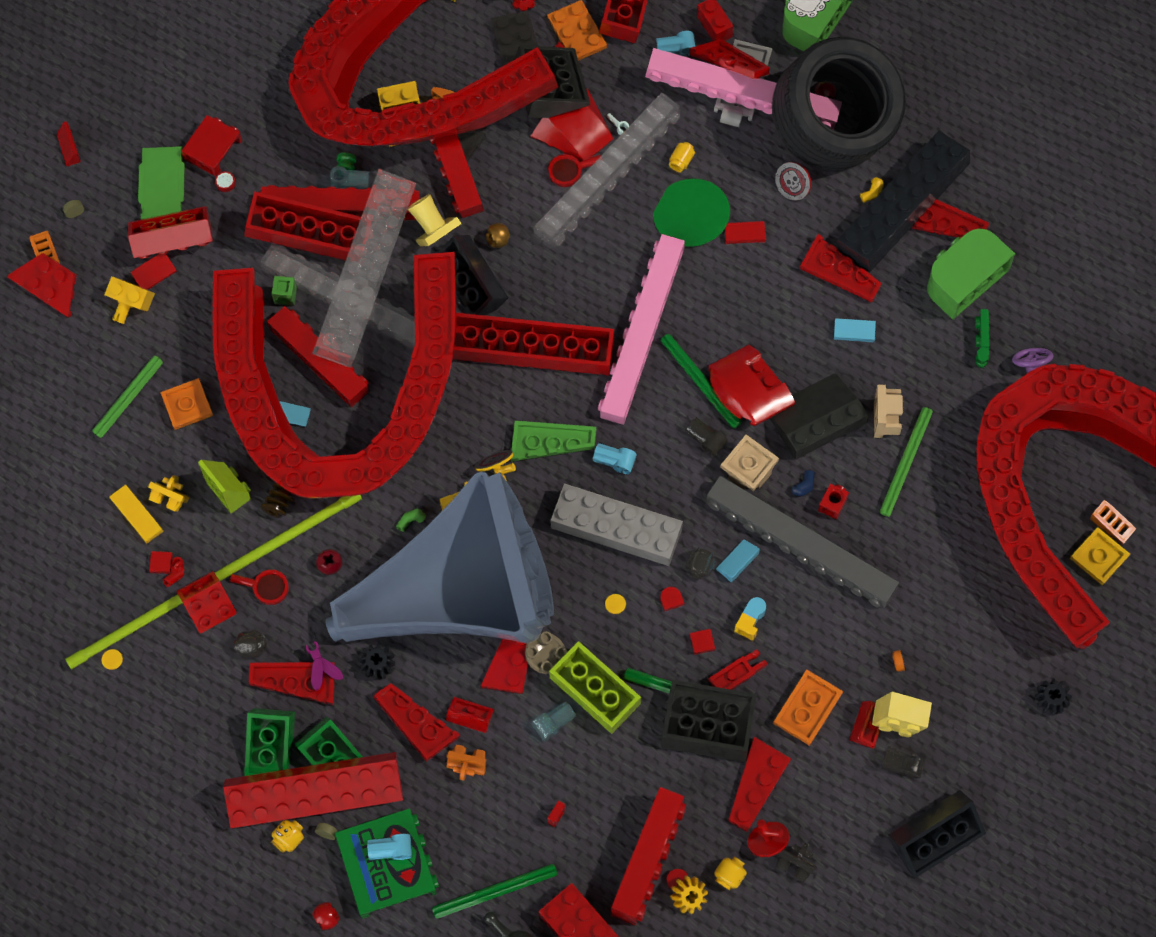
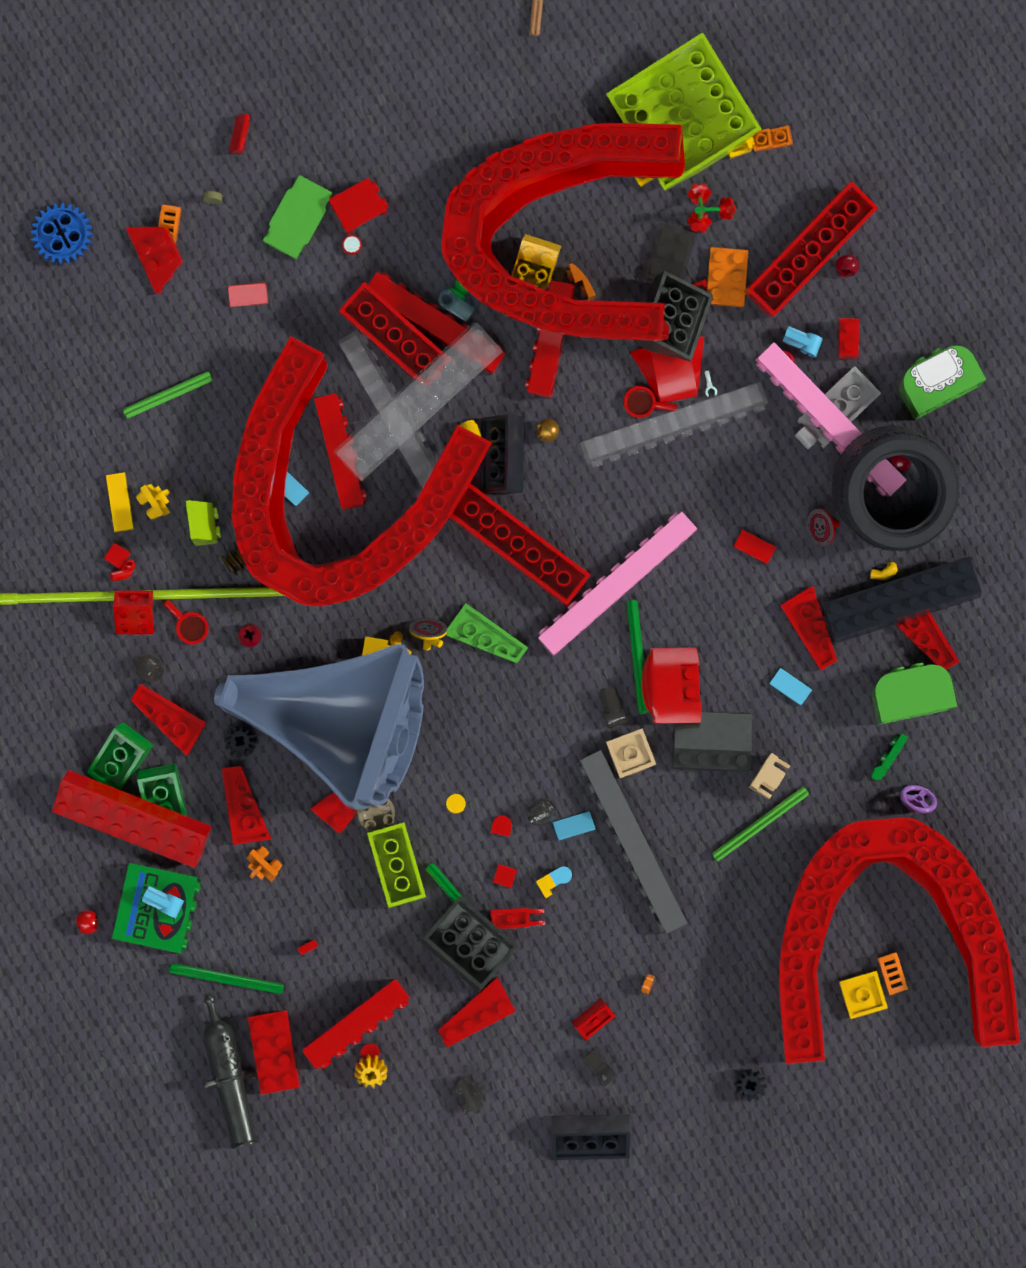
camera: 25 degrees right, 15 degrees up
(112, 659) = (35, 614): yellow piece -> none
(128, 296) = (214, 306): yellow brick -> none
(170, 232) = (278, 270): brick -> none
(186, 404) = (211, 430): orange plate -> none
(284, 290) = (343, 378): bright green brick -> none
(287, 836) = (92, 842): yellow head -> none
(322, 665) = (193, 719): magenta piece -> none
(326, 831) = (125, 856): olive tile -> none
(410, 516) = (335, 634): bright green arm -> none
(431, 221) = (499, 394): light yellow plant -> none
(469, 714) = (288, 826): red slope -> none
(549, 723) = (349, 871): clear light blue piece -> none
(616, 524) = (494, 740): light grey brick -> none
(619, 459) = (530, 686): medium azure piece -> none
(681, 156) = (743, 448): yellow brick -> none
(692, 211) = (722, 502): green sticker -> none
(730, 873) = (413, 1073): yellow head -> none
(731, 58) = (835, 384): red wing -> none
(768, 838) = (458, 1064): red shield -> none
(805, 486) = (666, 797): dark blue arm -> none
(808, 707) = (554, 979): orange plate -> none
(830, 508) = (671, 823): red brick -> none
(901, 714) = (620, 1031): light yellow brick -> none

